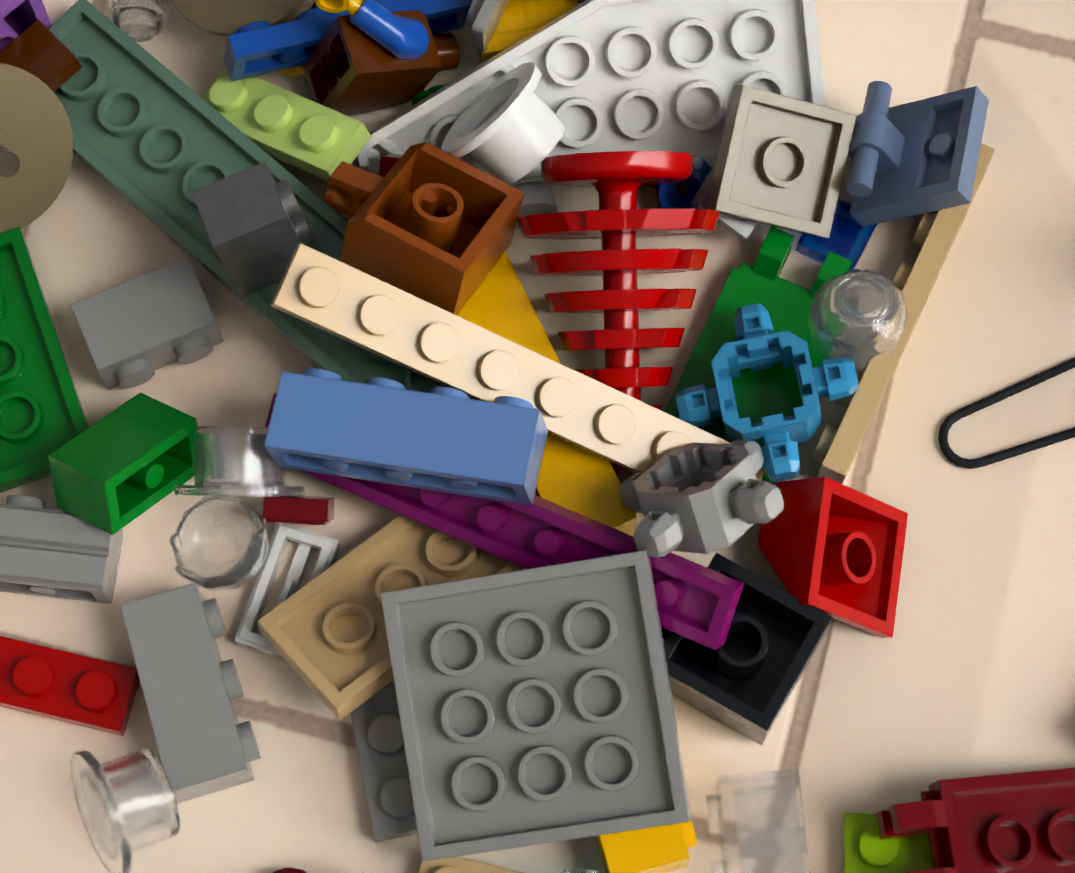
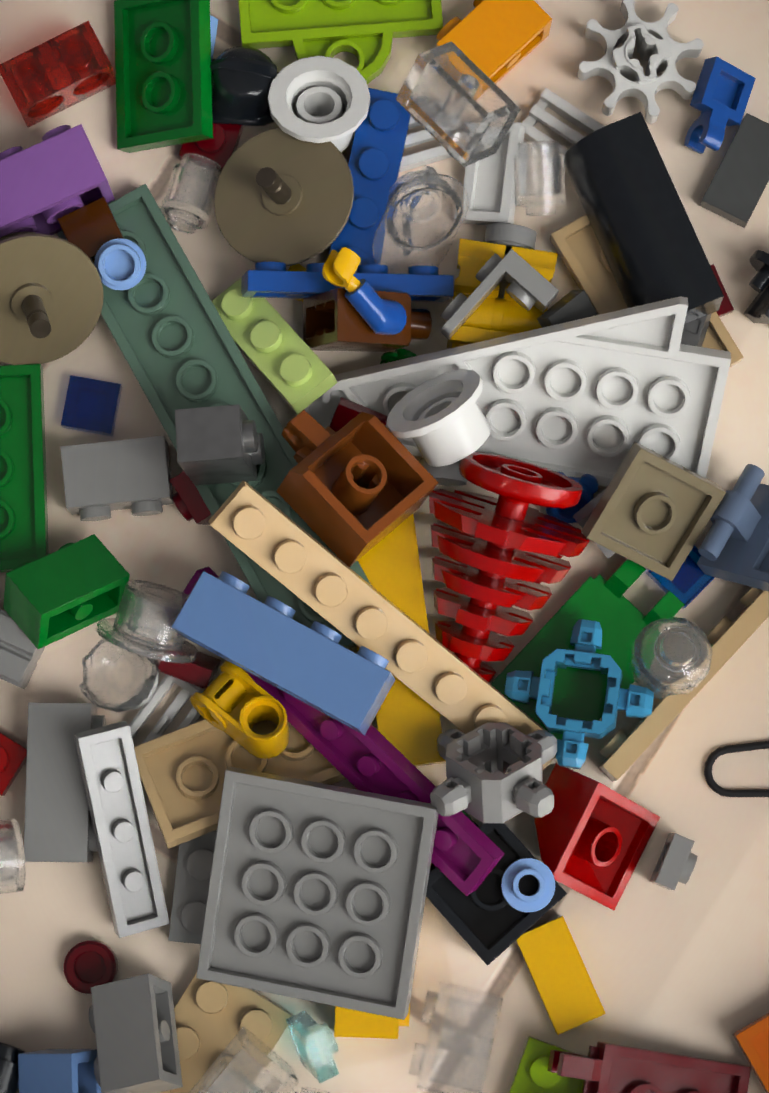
camera: 15 degrees right, 10 degrees up
(80, 83) = (120, 264): none -> light blue plate
(92, 259) = (91, 405): none -> clear blue tile
(244, 321) = (189, 500): none -> dark red plate
(277, 717) = (122, 828): none -> plate
(370, 529) = (236, 705): none -> yellow piece
(777, 636) = (510, 882): none -> light blue plate
(855, 731) = (560, 975): none -> yellow tile
(943, 555) = (675, 862): none -> light grey plate

